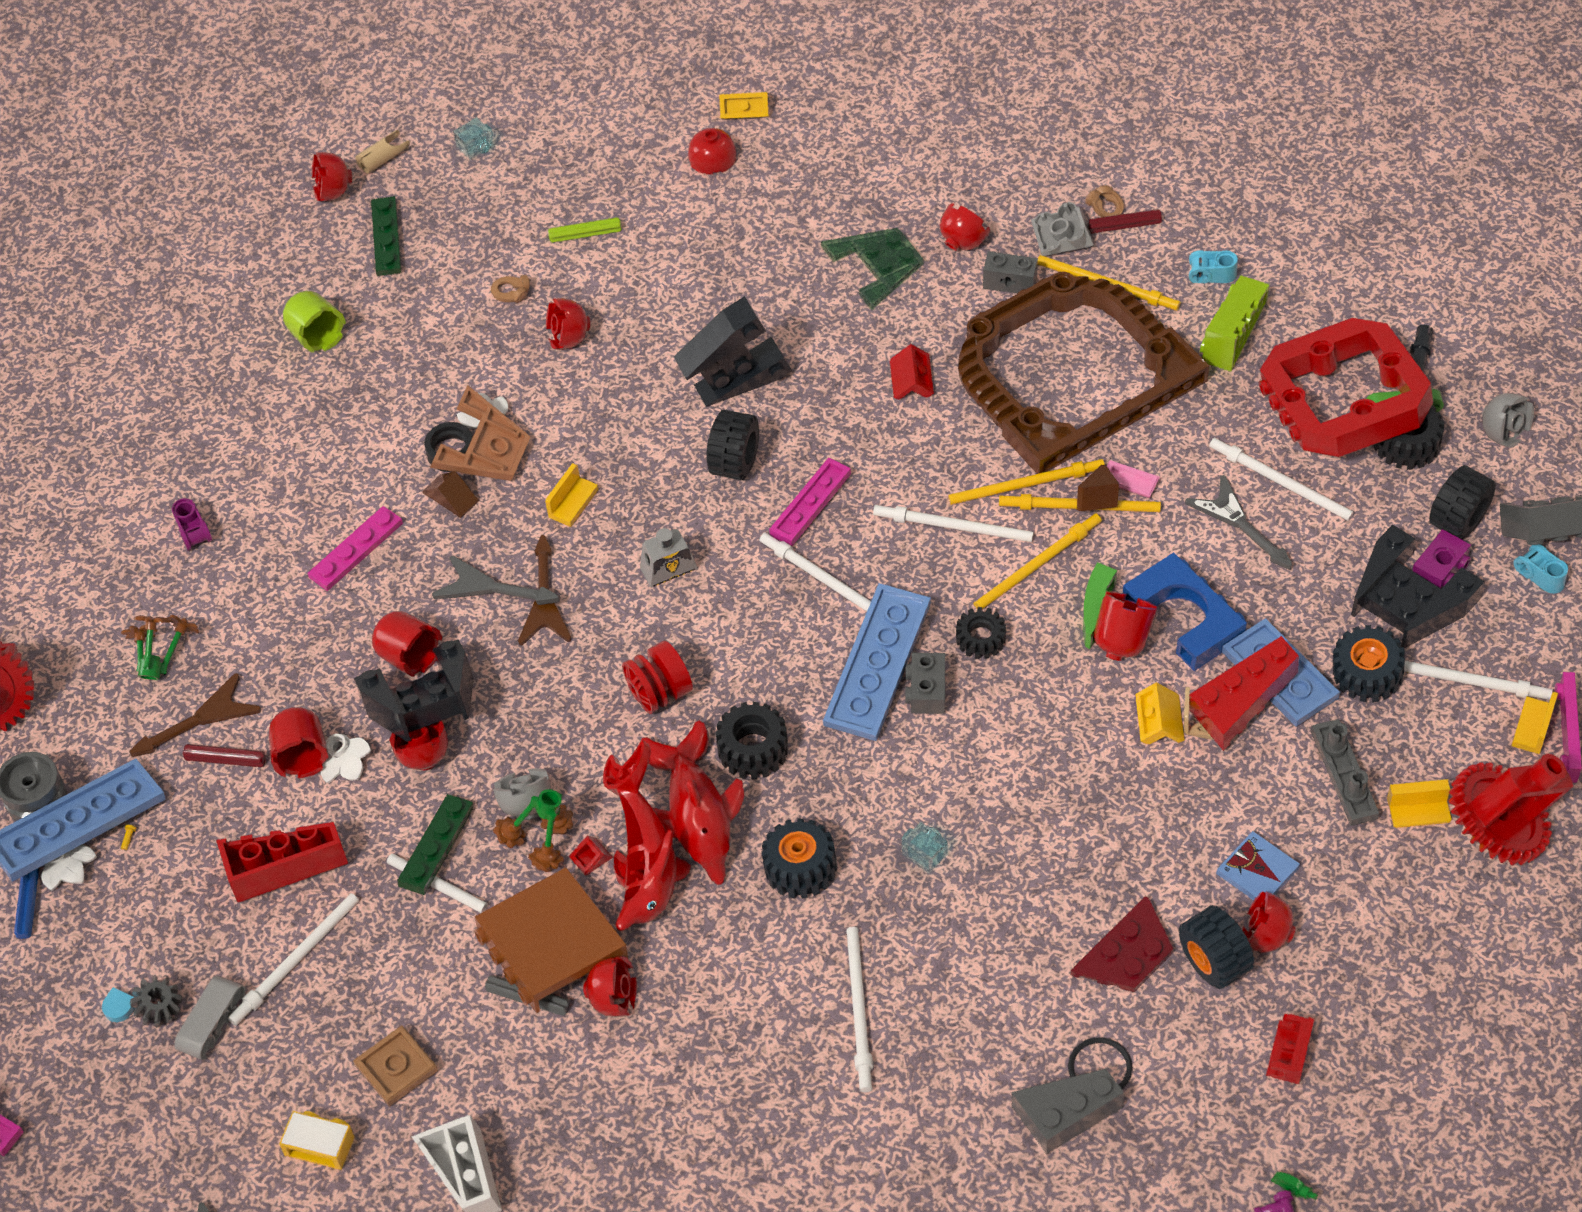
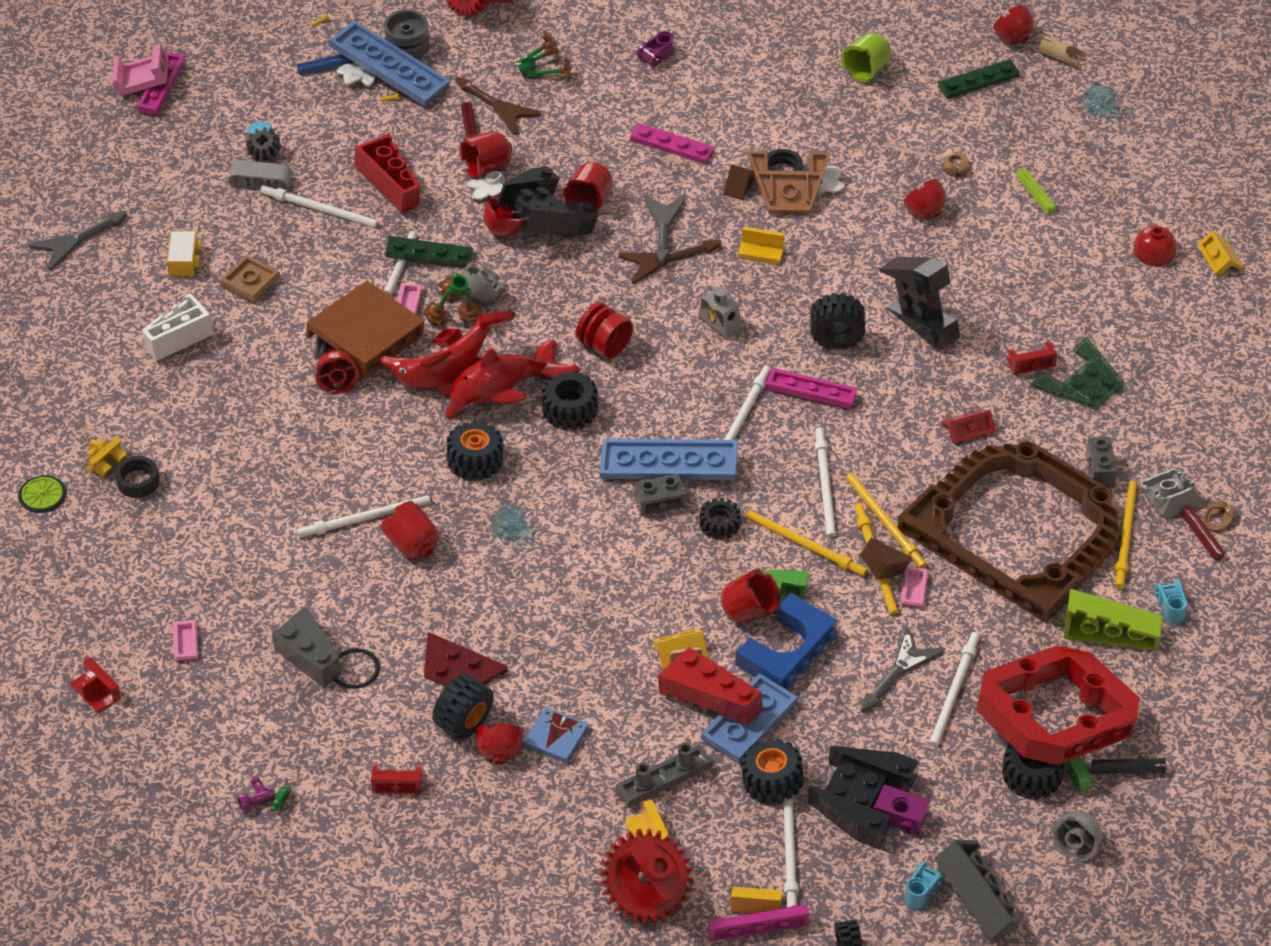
camera: 70 degrees right, 5 degrees down
(502, 882) = (410, 296): none -> bright pink tile
(835, 294) = (1032, 360): none -> red hinge
(916, 951) = (411, 531): none -> red cylinder
(962, 228) = (1134, 416): red cylinder -> none
(1462, 502) = (961, 806): black tyre -> none

